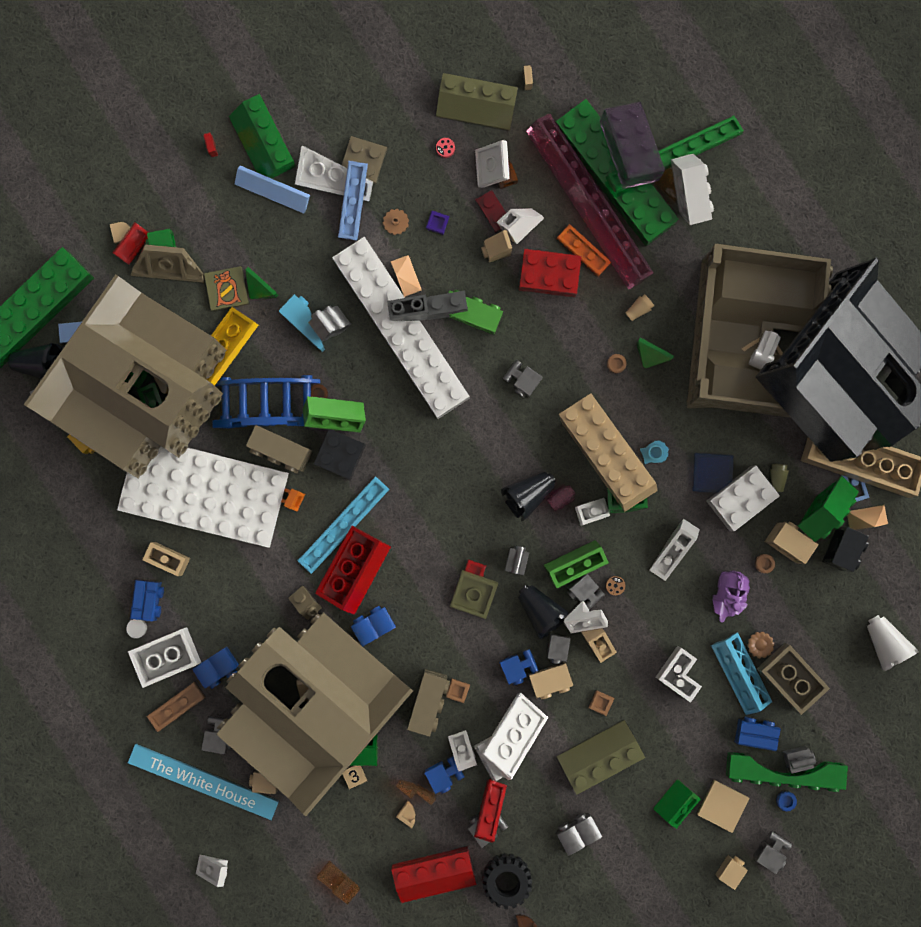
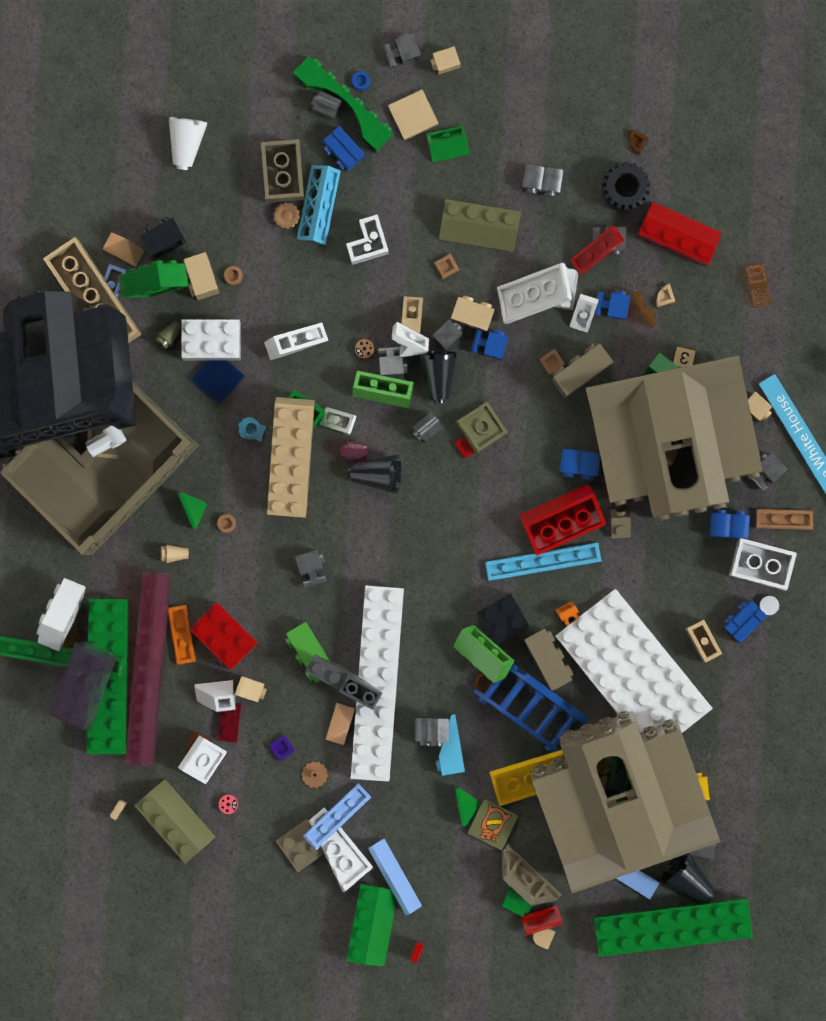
camera: 150 degrees left, 0 degrees up
(731, 594) = (279, 272): medium lavender helmet -> none

